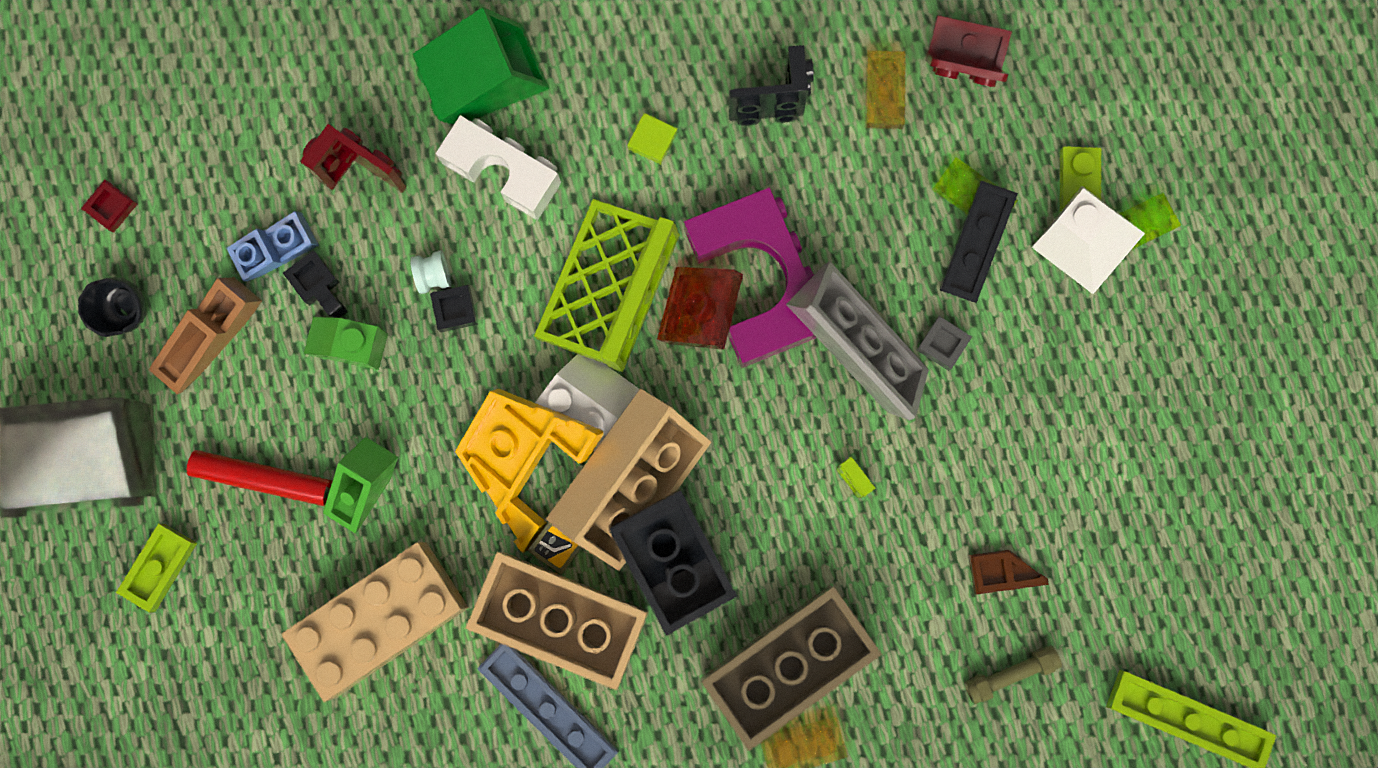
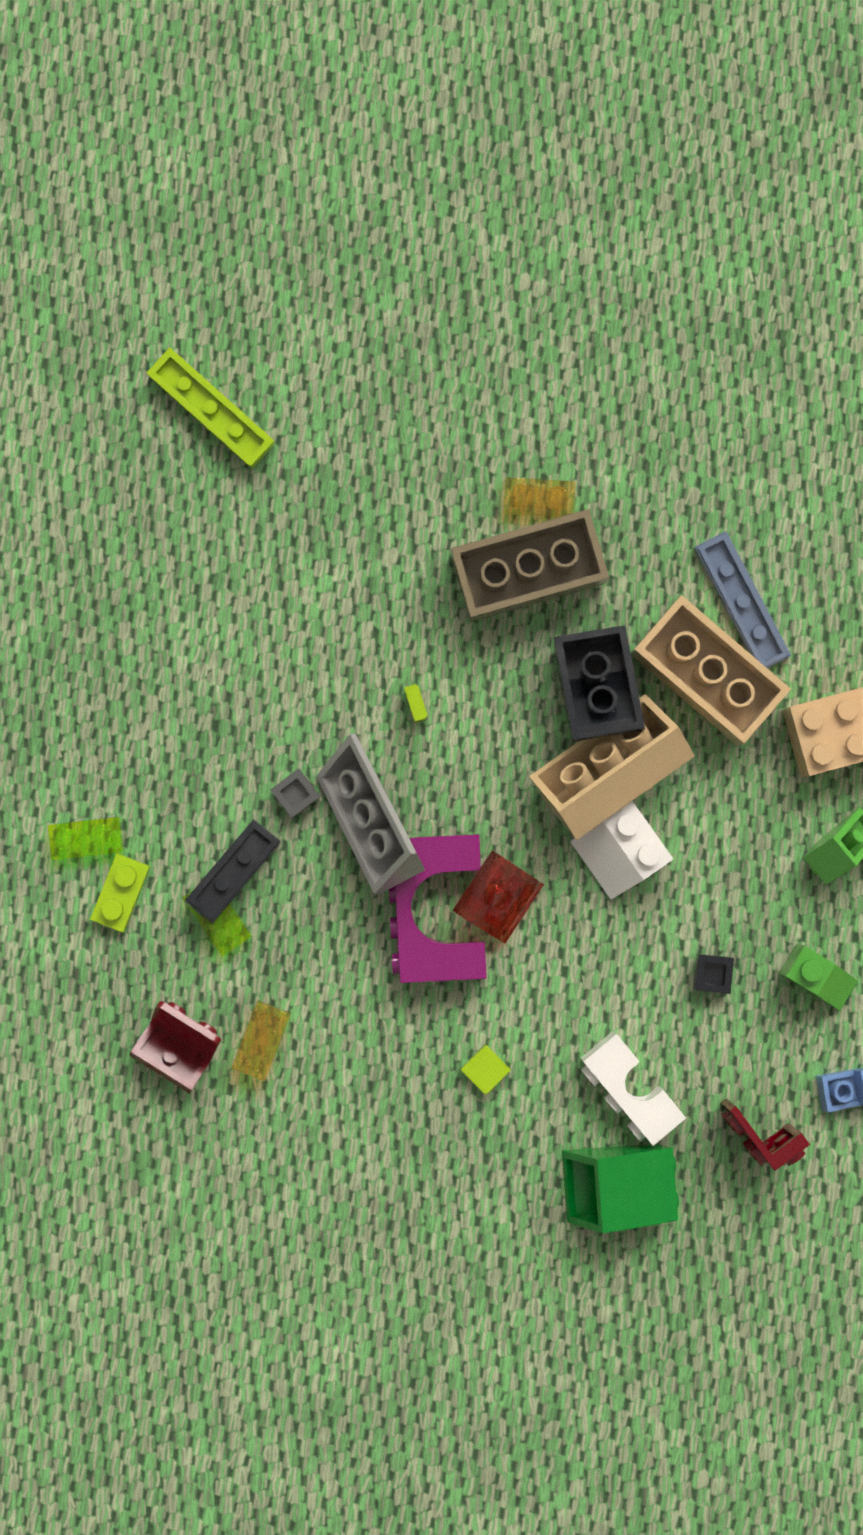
camera: 165 degrees left, 5 degrees up
(314, 282) = (830, 1040): black plate -> none
(430, 272) = (723, 1013): light aqua wheel -> none
(507, 446) = (706, 833): yellow wing -> none
(554, 548) = (696, 731): slope -> none
(638, 294) = (547, 929): lime fence -> none
(775, 101) = (360, 1054): black bracket -> none
(1002, 572) = (319, 582): reddish brown tile -> none
(1044, 661) = (312, 497): olive bar -> none
(1088, 240) = (135, 840): white slope -> none

